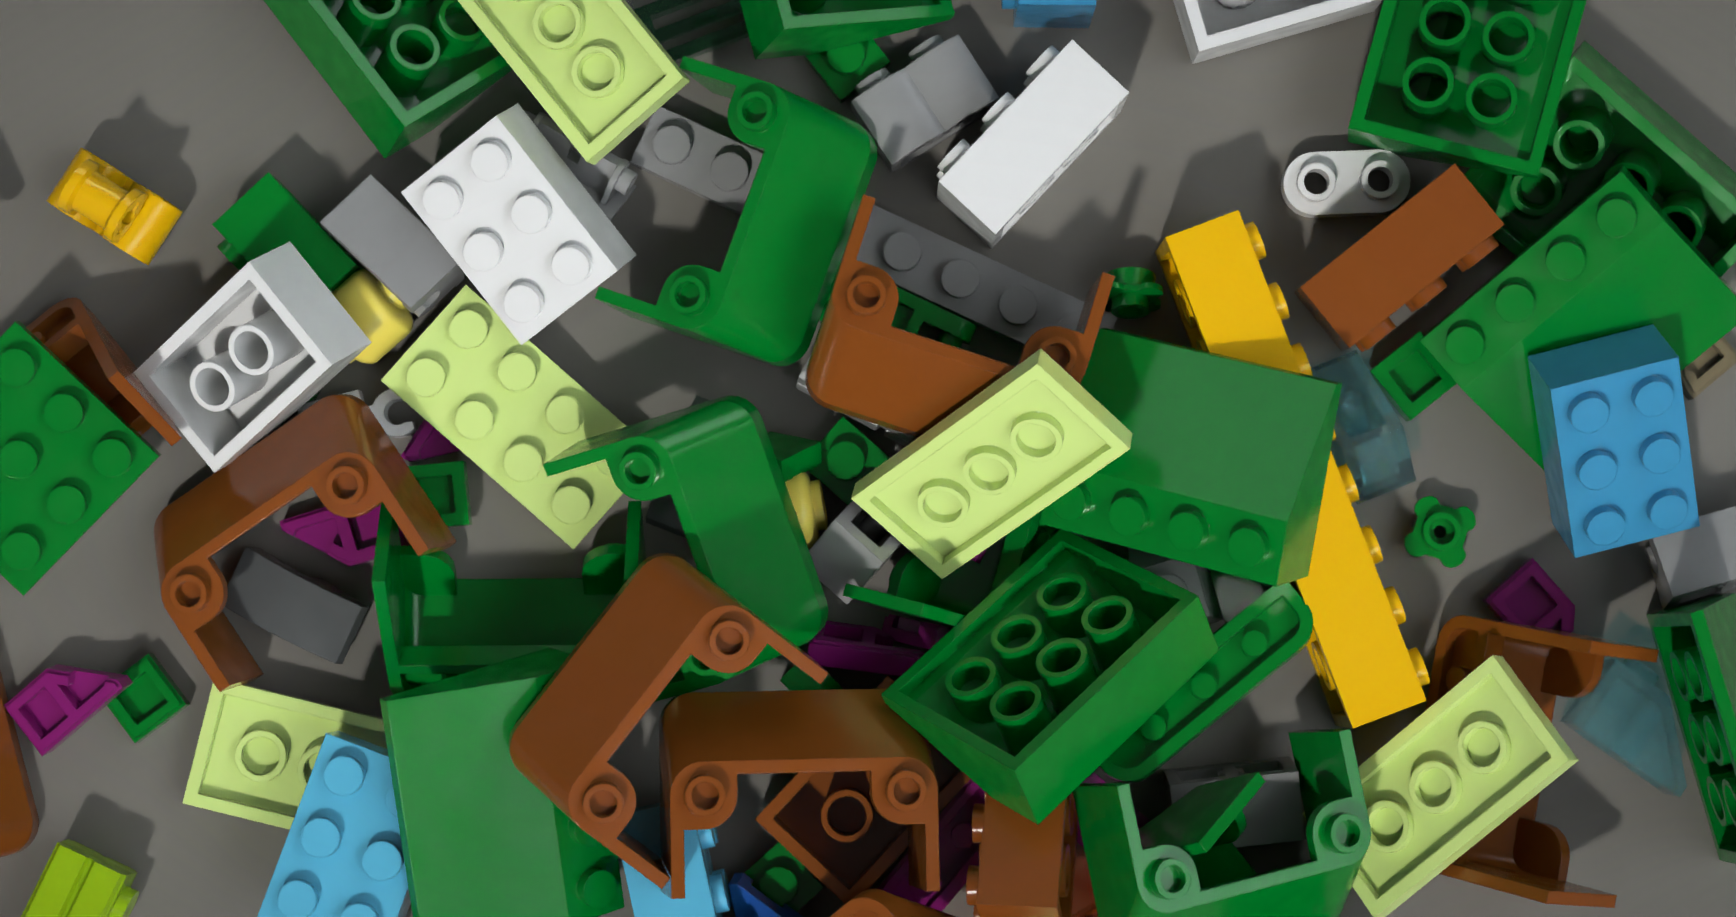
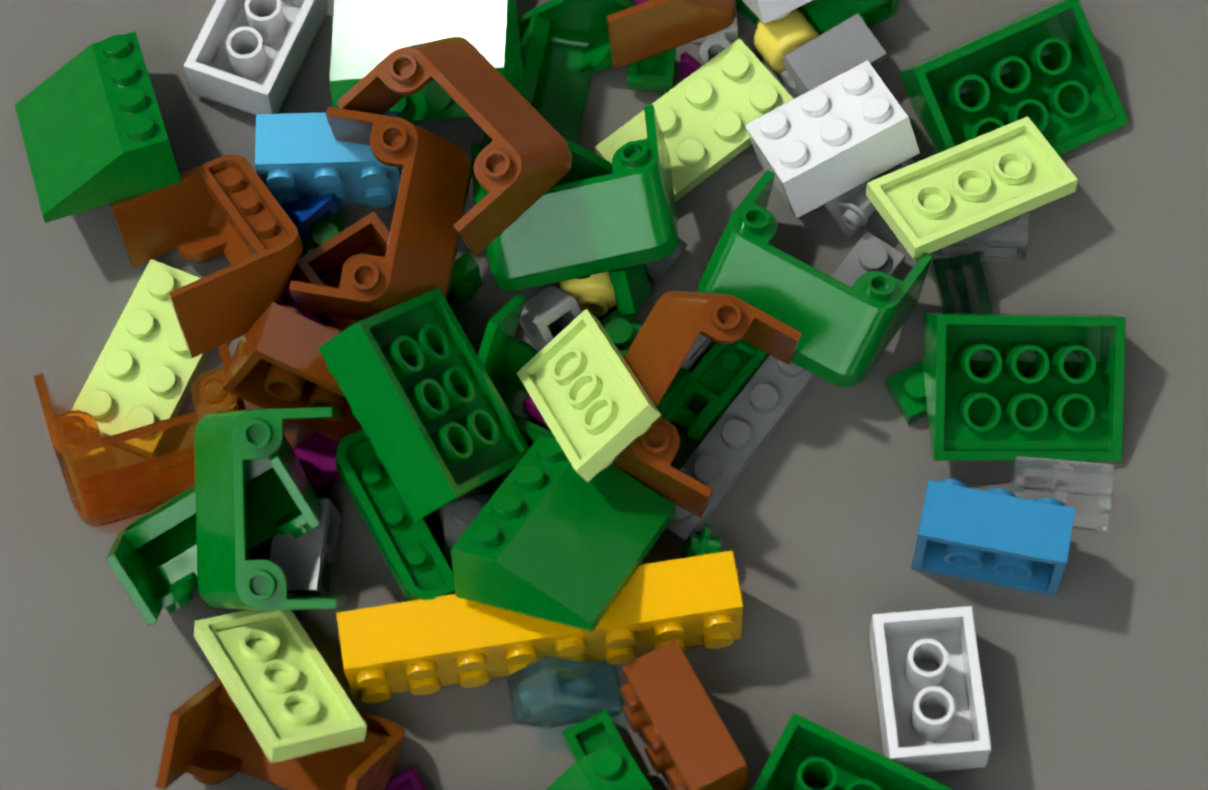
camera: 100 degrees right, 20 degrees down
(860, 649) = (480, 306): magenta tile -> none
(923, 101) = (873, 433): light grey brick -> none
(1029, 141) = (825, 489): white brick -> none
(1346, 183) = (757, 724): white plate -> none
(1422, 538) = (476, 755): green plate -> none

